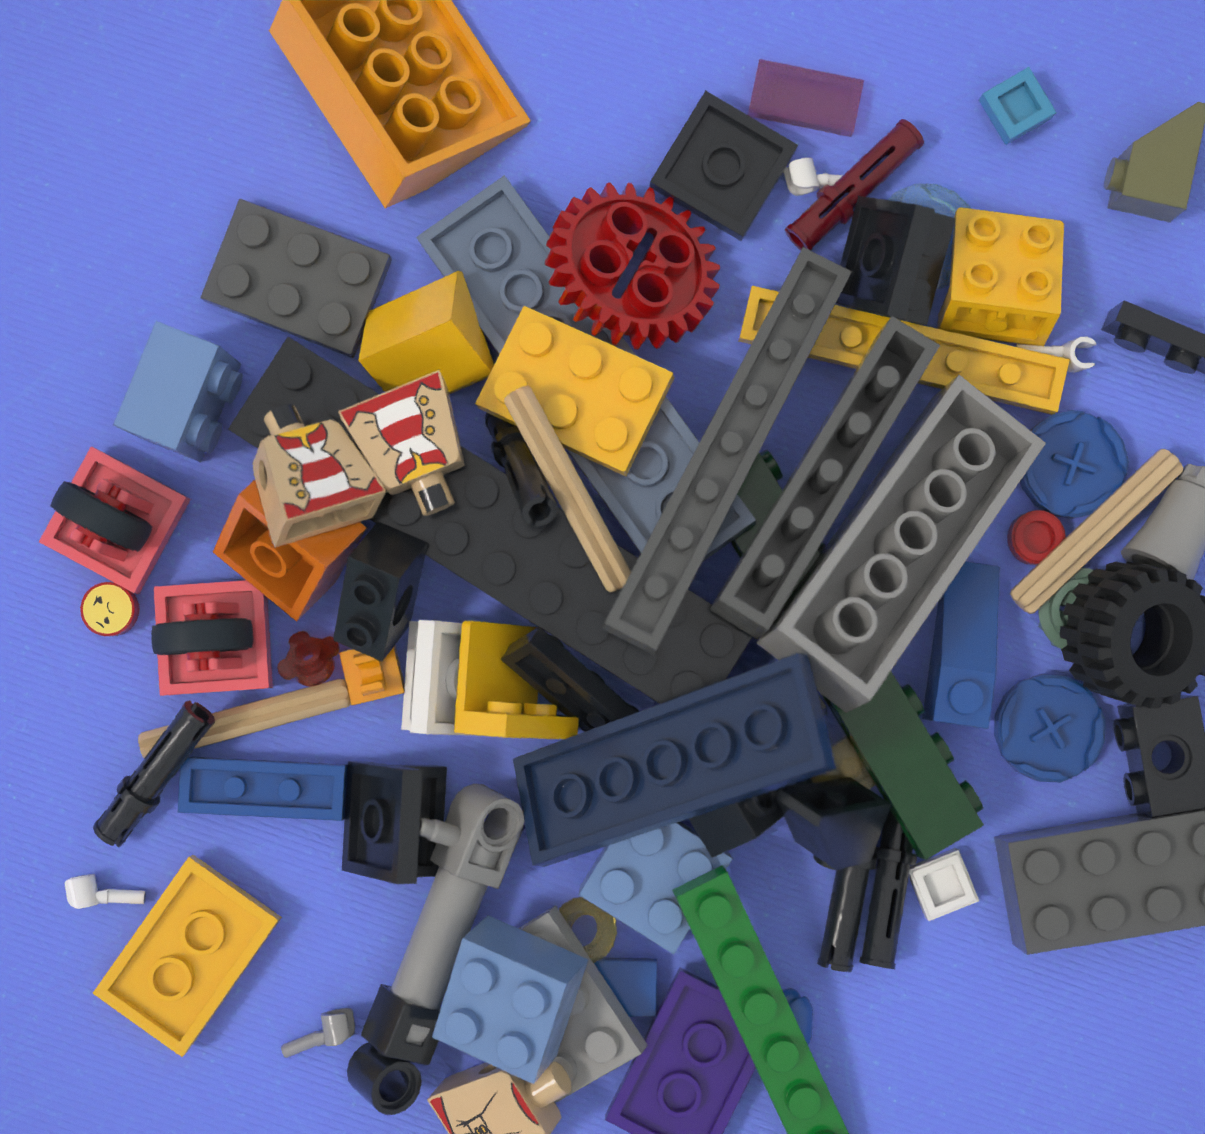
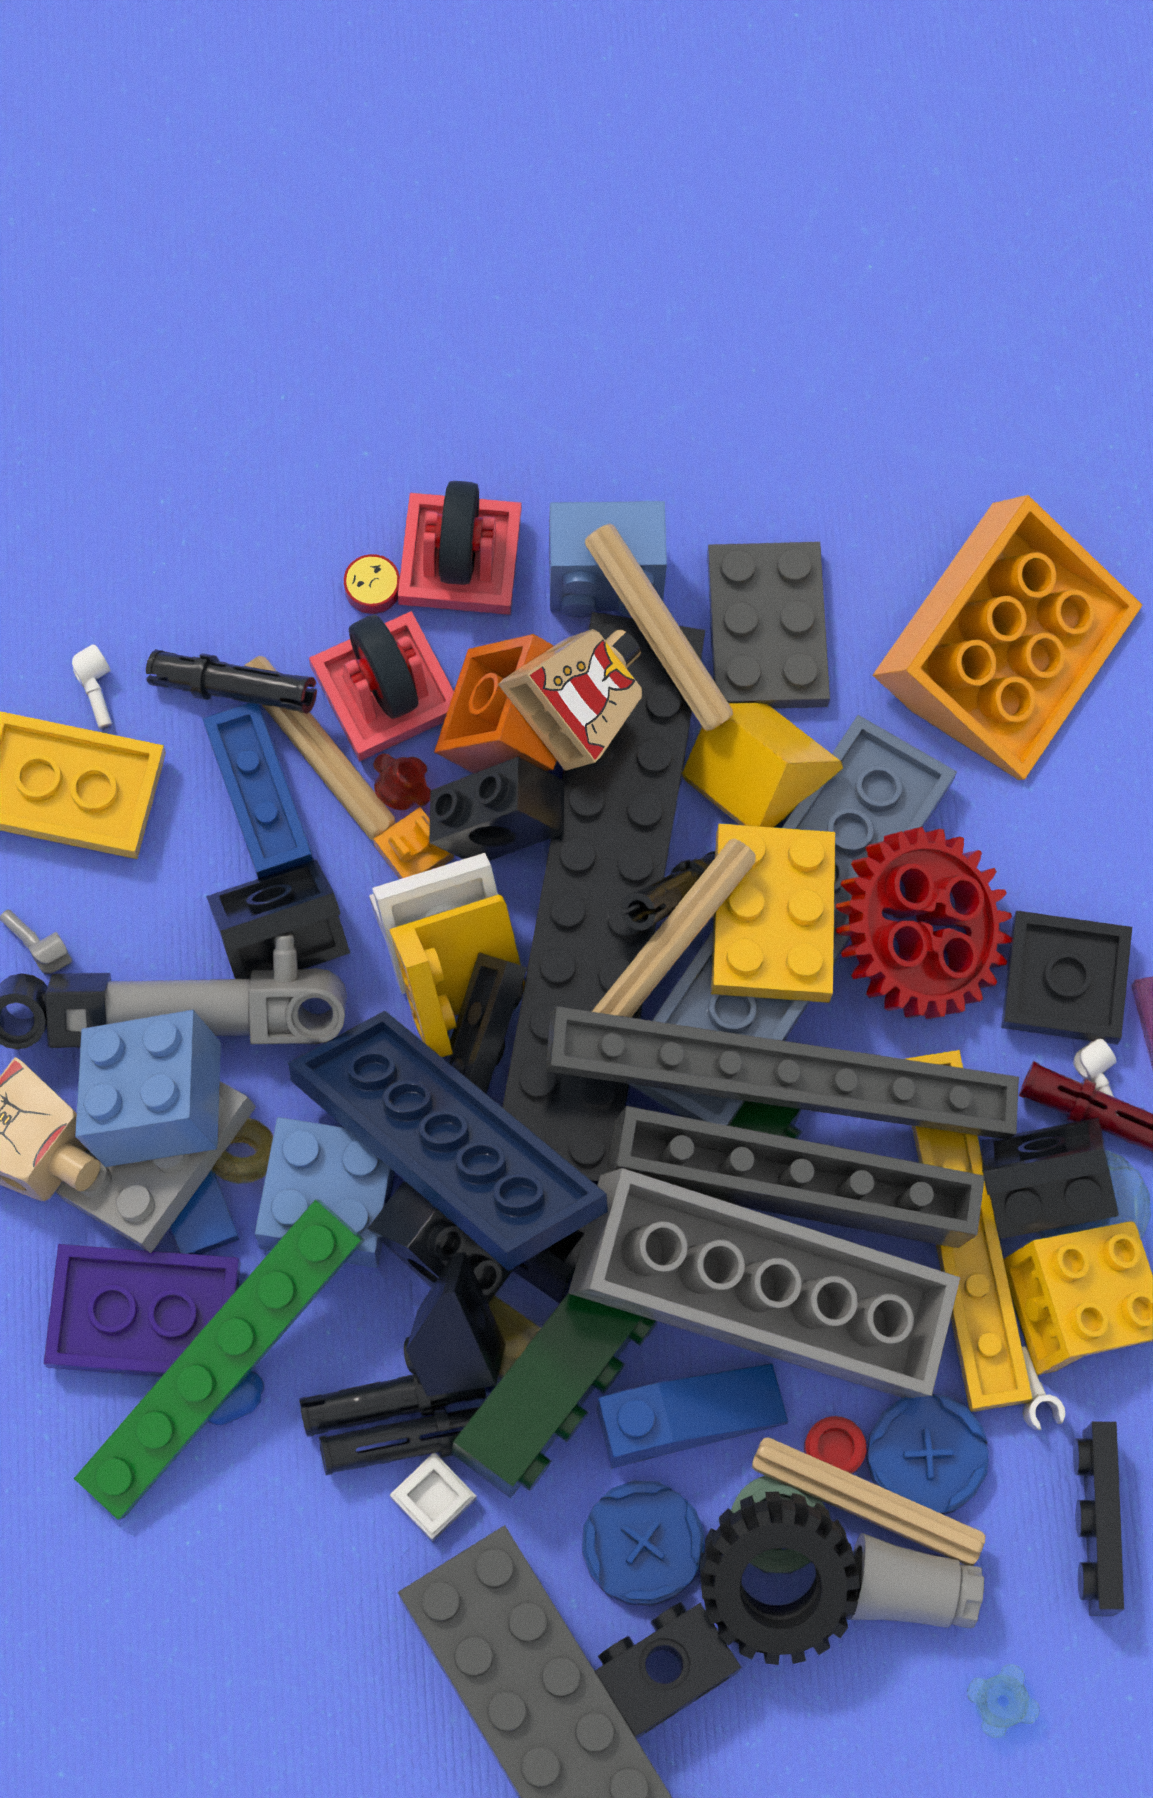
camera: 60 degrees right, 15 degrees down
(273, 378) = (658, 627): none -> tan axle
(410, 439) = (656, 772): torso -> none

